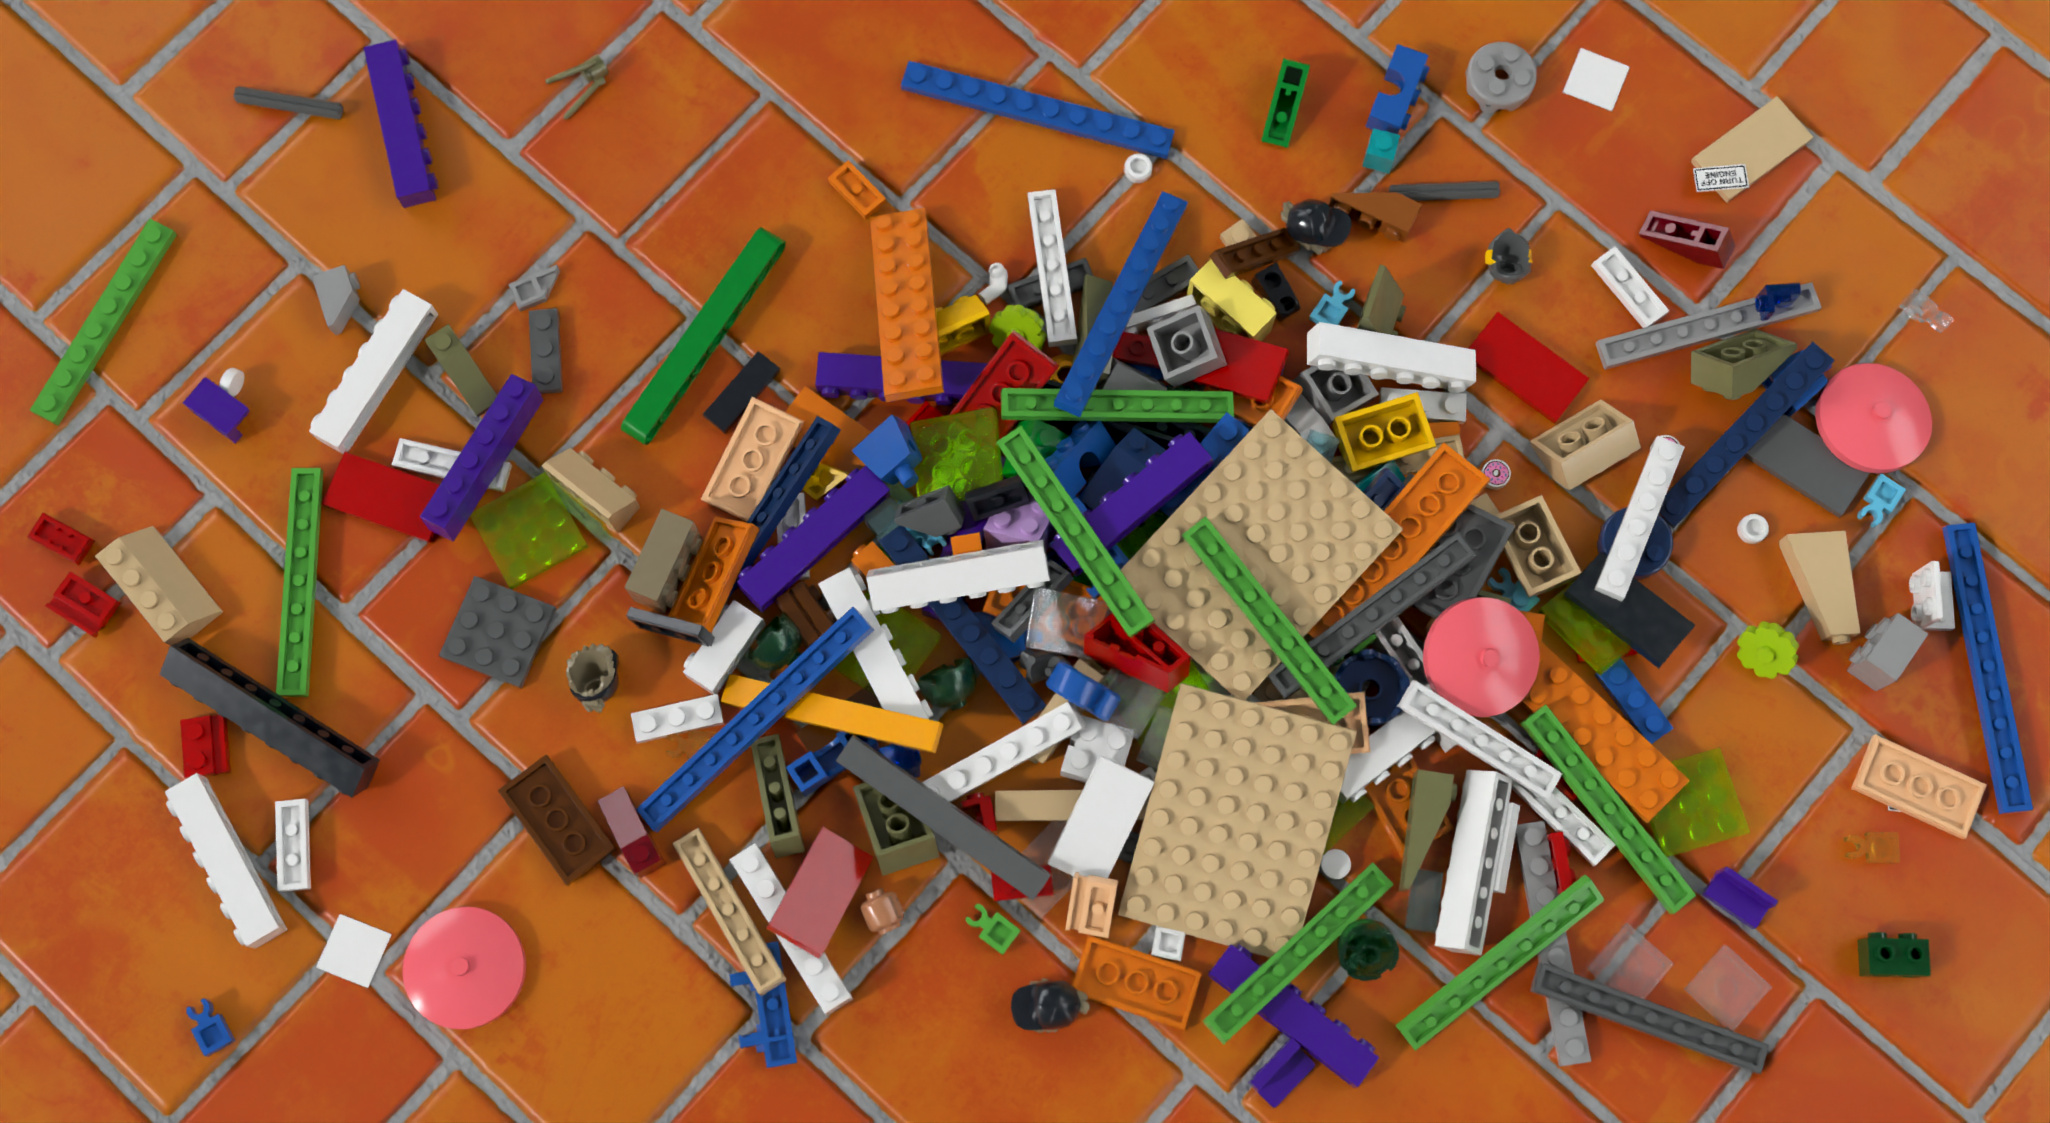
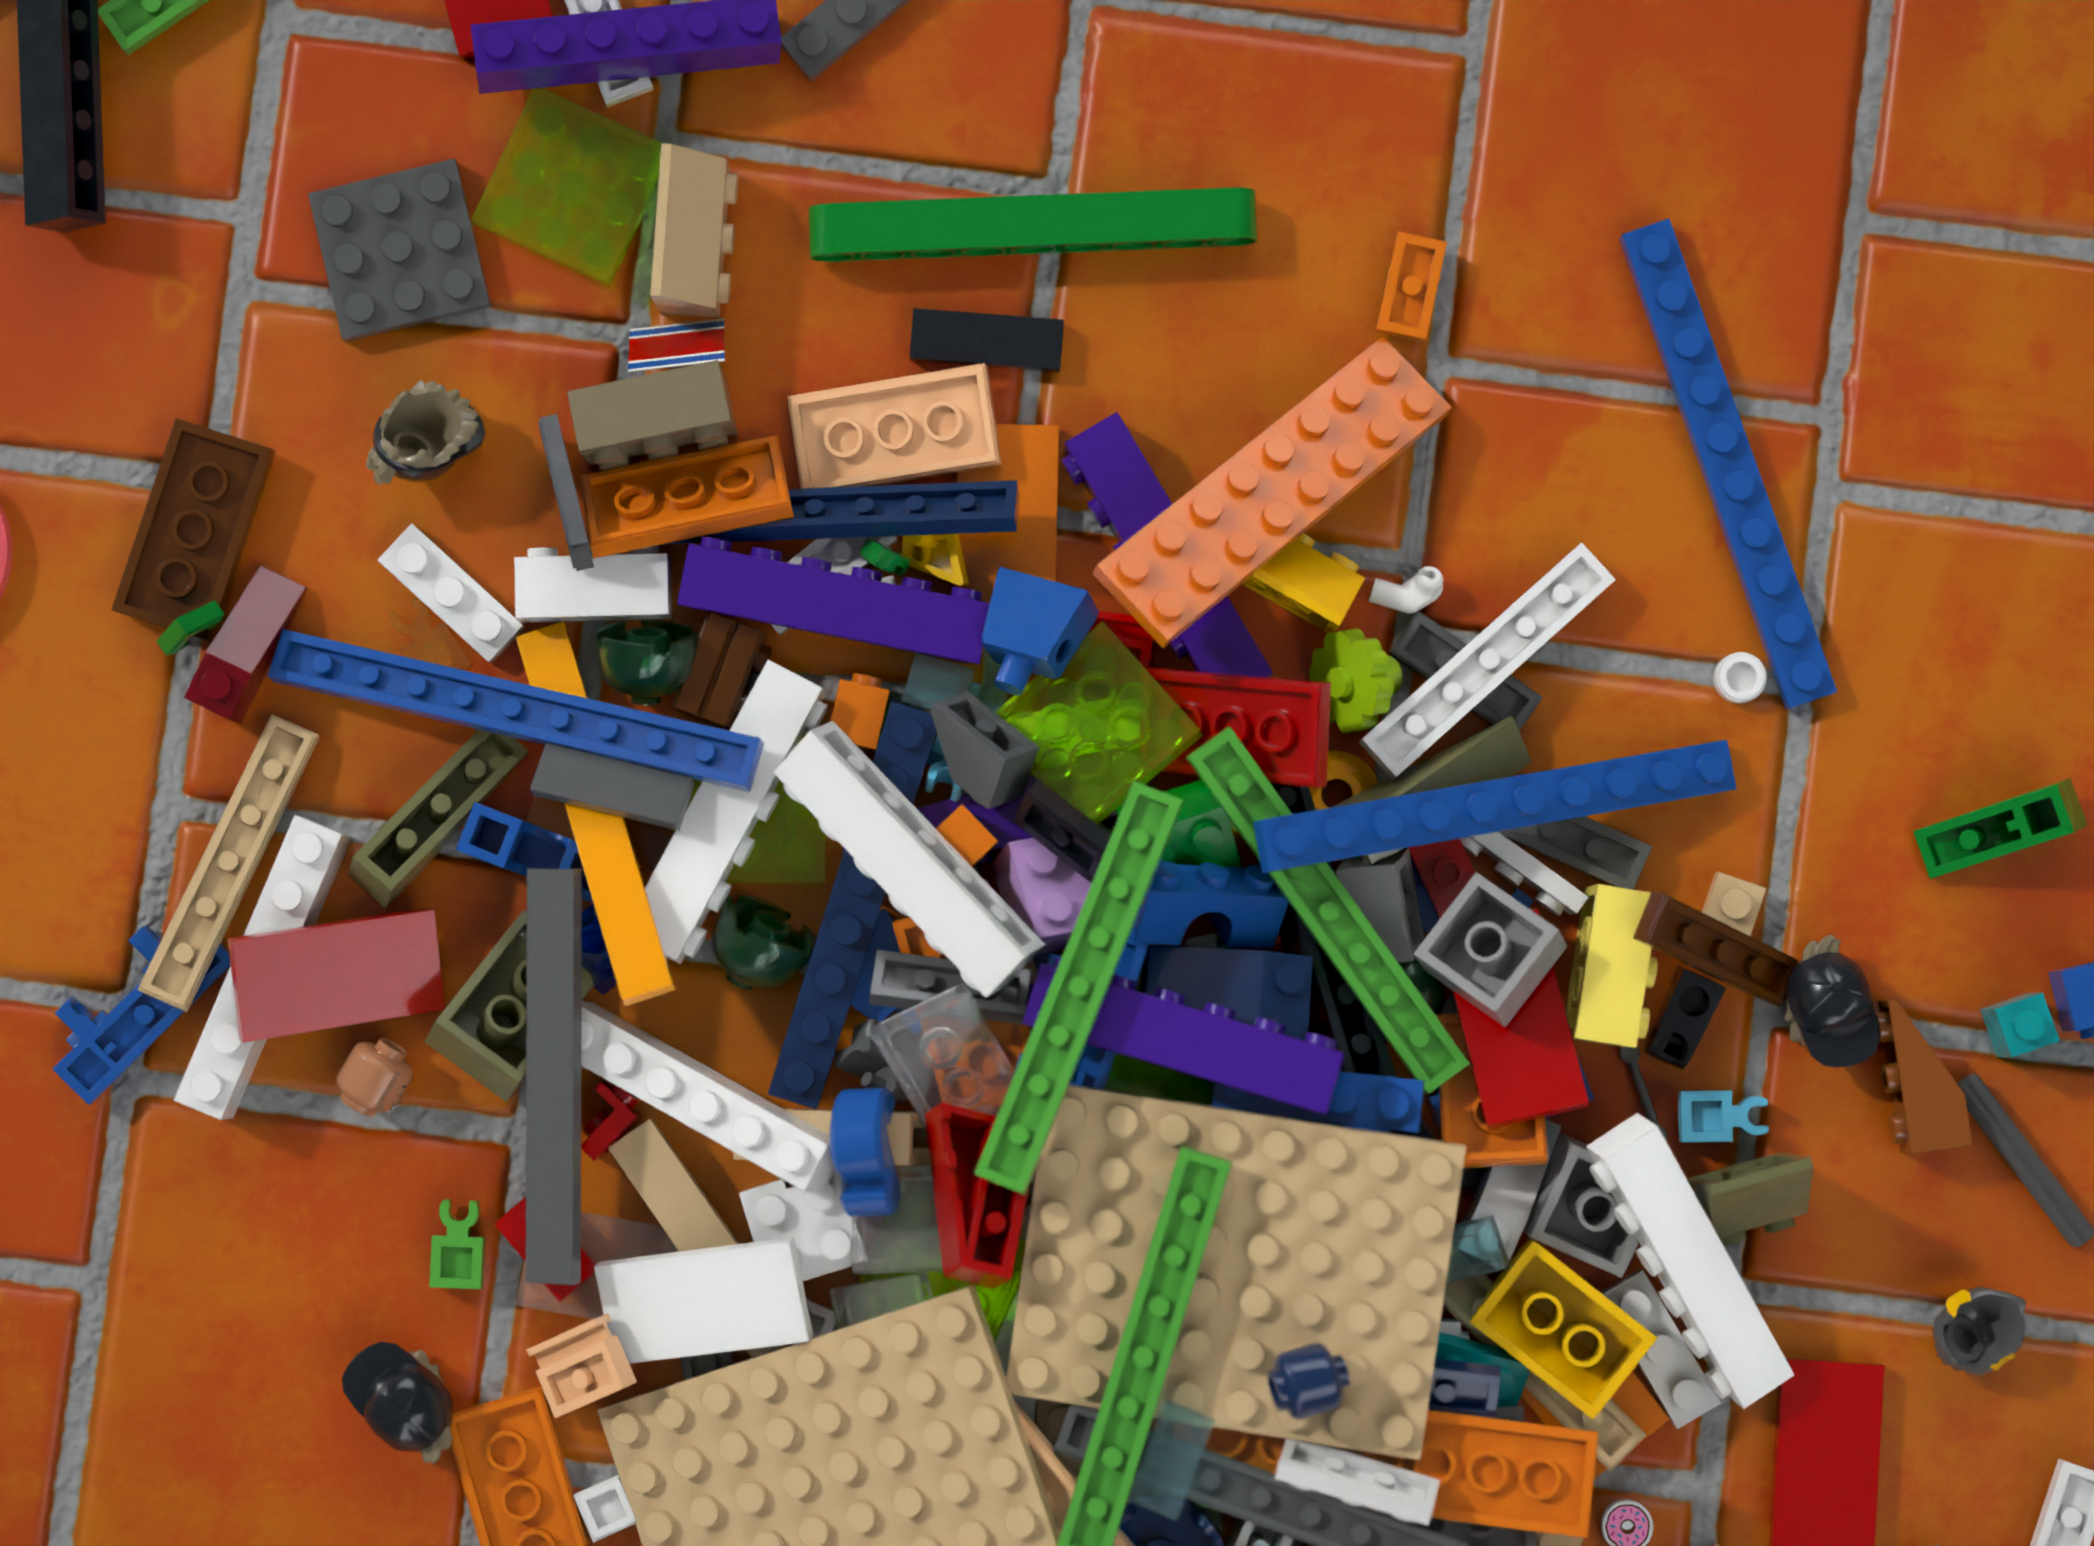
camera: 50 degrees right, 10 degrees up
(601, 850) = (185, 626): none -> green tile
(638, 531) = (676, 345): none -> sticker
(808, 501) = (885, 557): none -> green tile
(825, 694) = (612, 786): none -> dark grey tile
(1277, 330) = (1630, 1056): none -> dark grey hinge
(1326, 642) = (1171, 1460): none -> clear light blue tile
(1331, 551) = (1307, 1381): none -> dark blue head
(1393, 563) = (1358, 1480): none -> white plate

